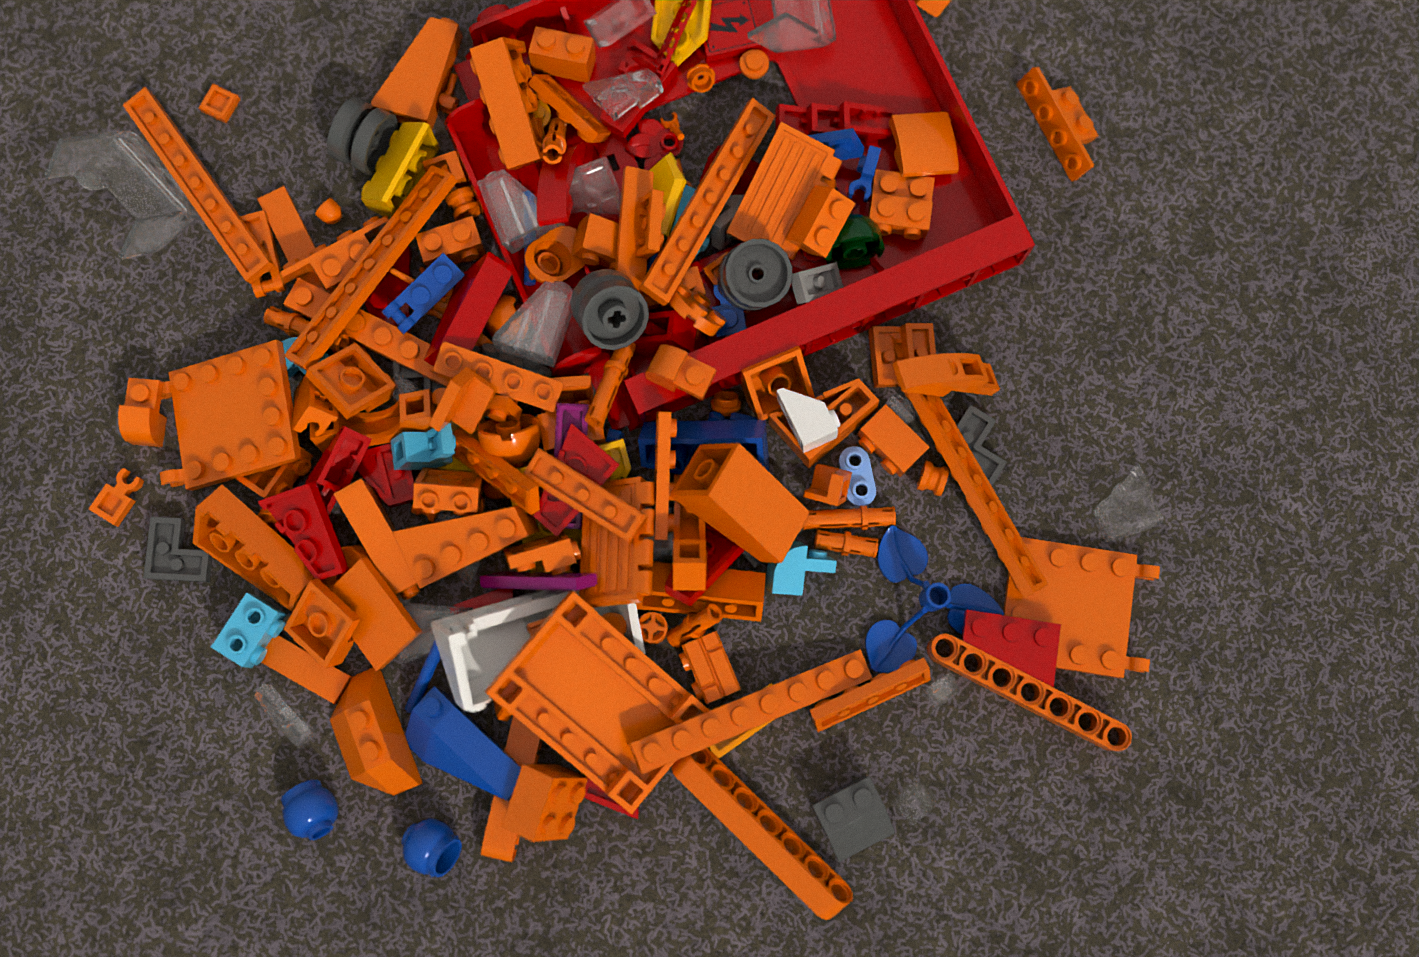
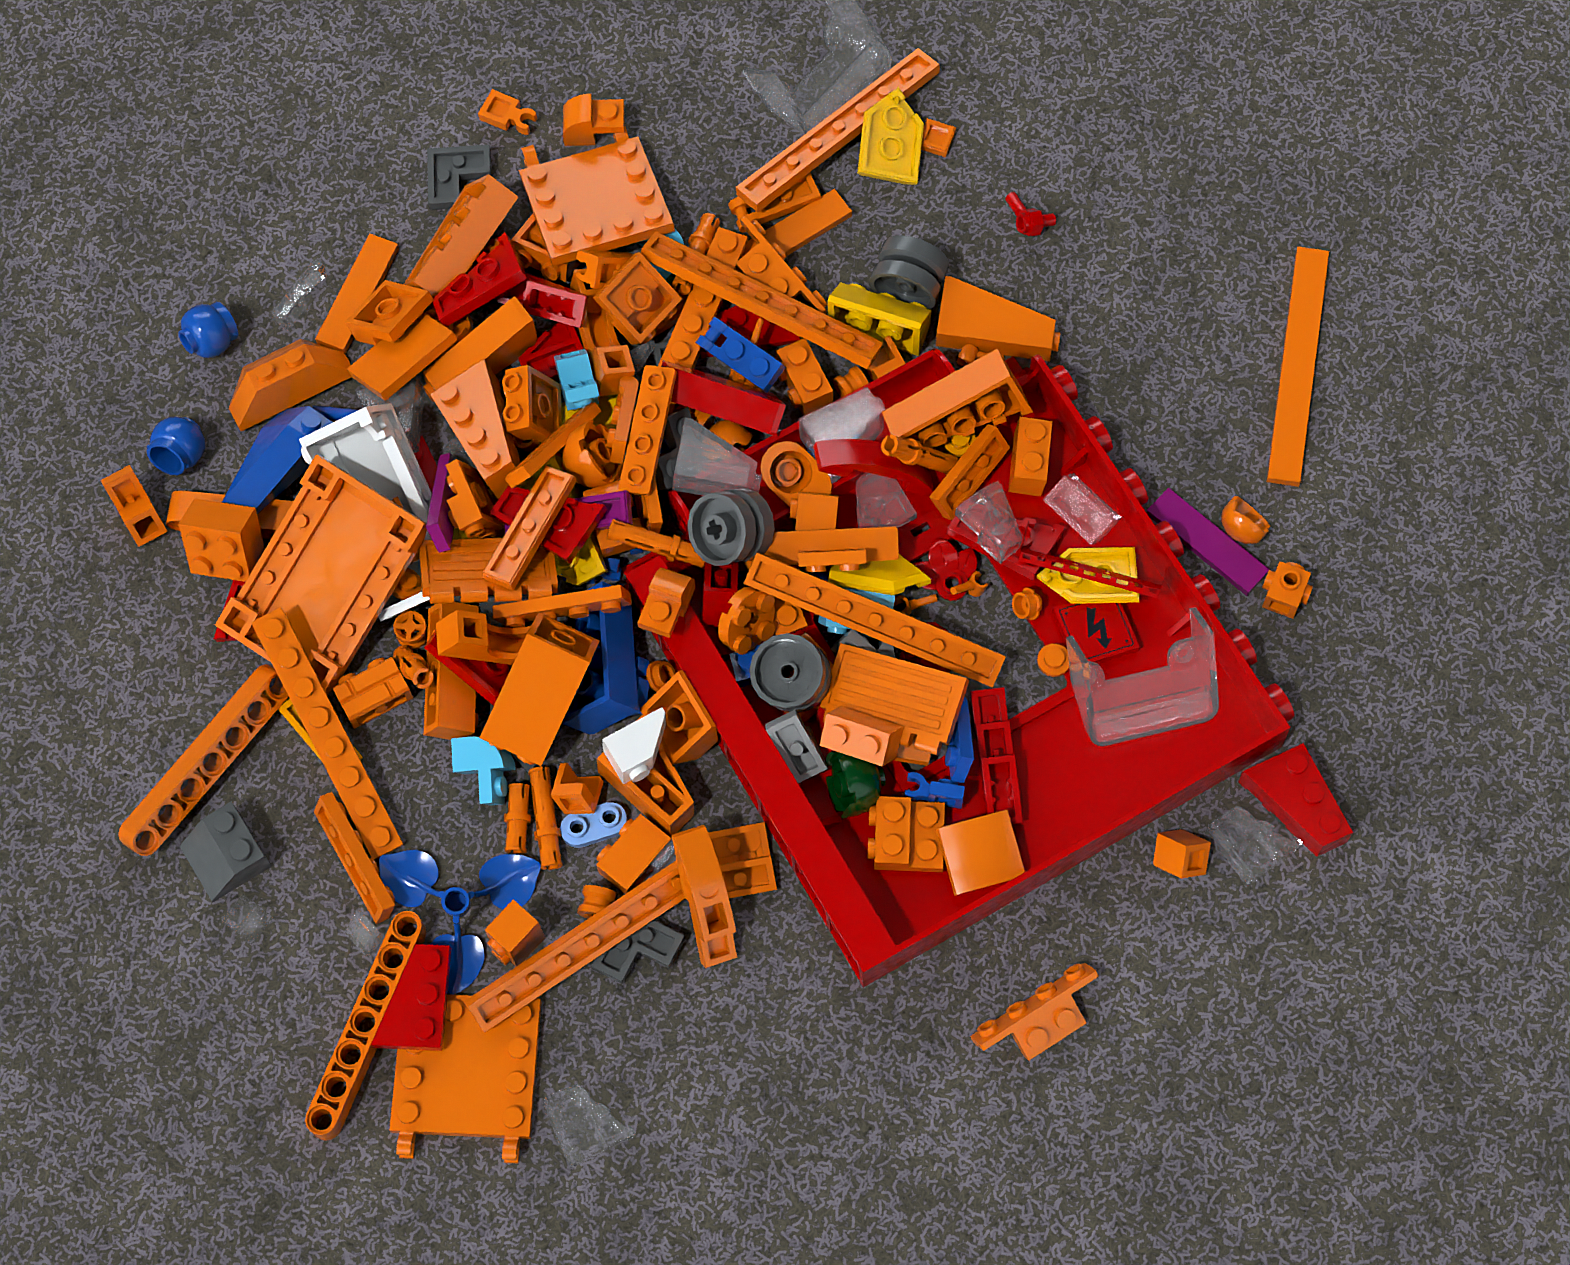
camera: 90 degrees right, 10 degrees down
(218, 138) = (891, 141): none -> yellow tile
(249, 631) = (379, 249): medium azure brick -> none
(322, 31) = (1029, 221): none -> red piece
(329, 212) = (828, 258): orange hinge -> none
(463, 401) = (620, 398): orange panel -> none
(491, 892) = (134, 505): none -> orange brick
(963, 550) = (514, 934): none -> orange brick

